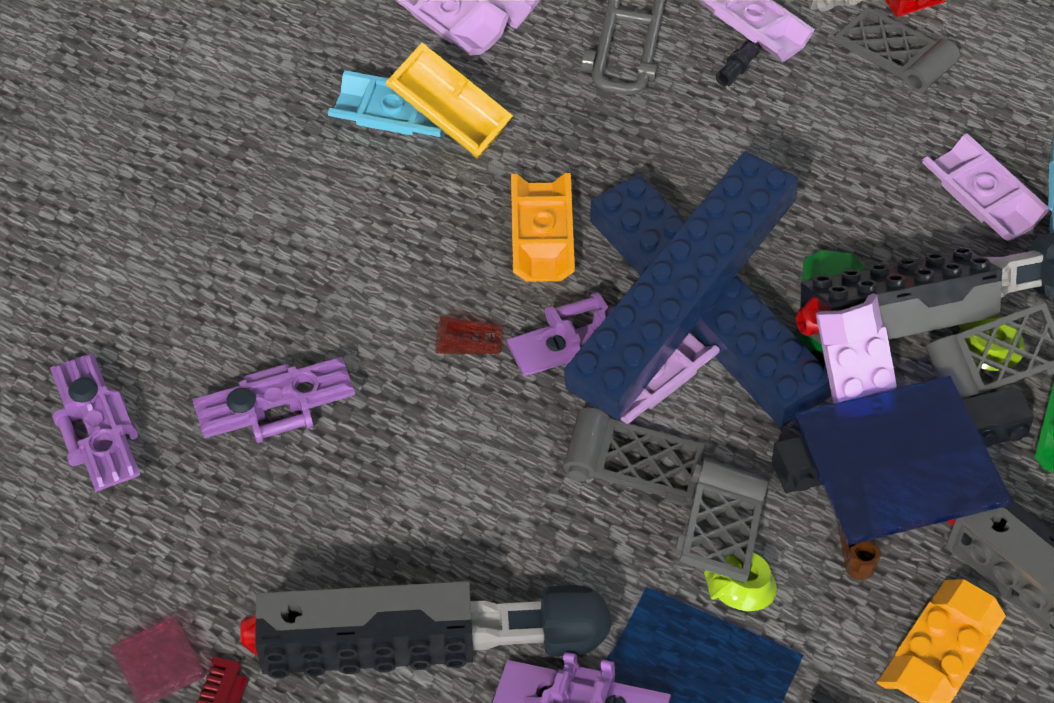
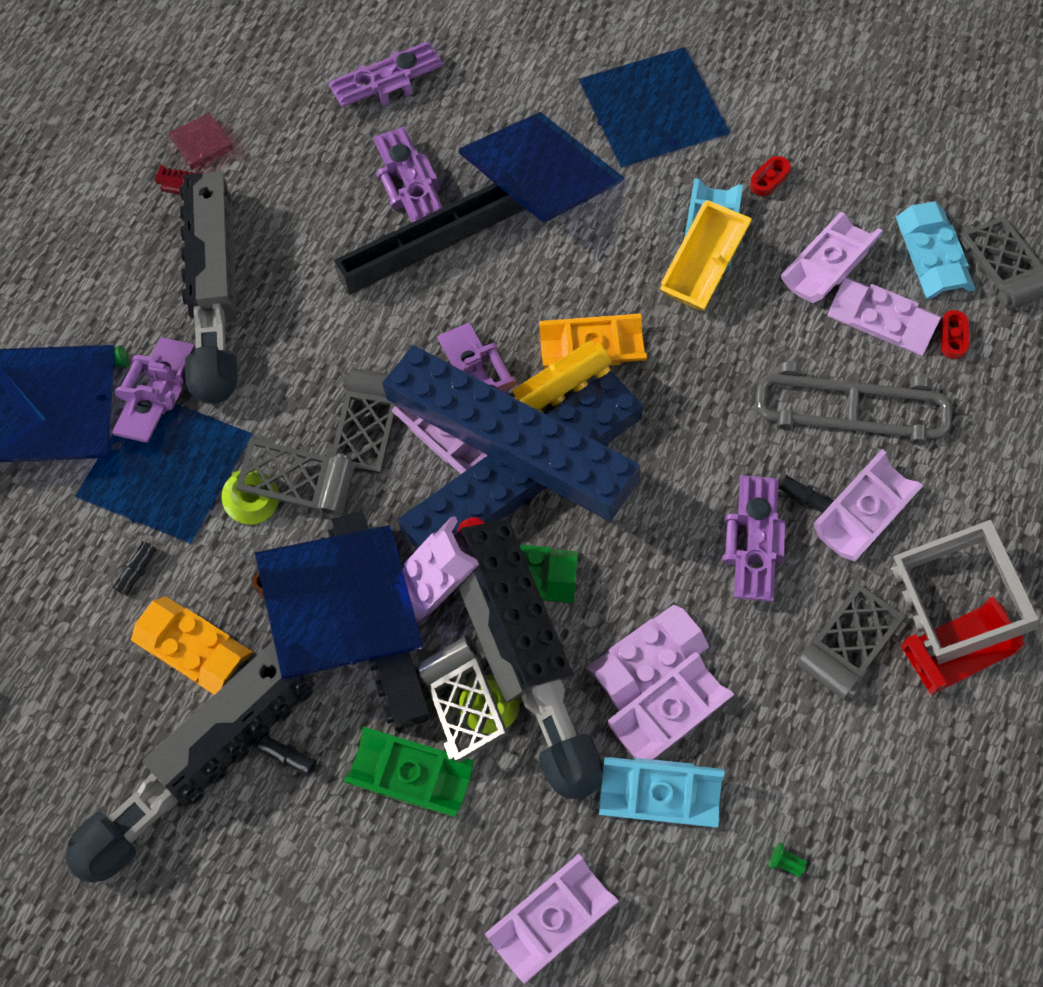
camera: 90 degrees right, 10 degrees up
(199, 152) = (653, 107): none -> clear blue piece
(287, 253) = (541, 166): none -> clear blue piece
(330, 52) = (768, 177): none -> red plate
(375, 379) = (424, 237): none -> black brick
(456, 345) = (478, 282): clear red slope -> none
(599, 240) = (564, 376): none -> yellow container
(779, 93) = (765, 538): none -> medium lavender piece
(921, 205) = (647, 655): none -> lavender piece

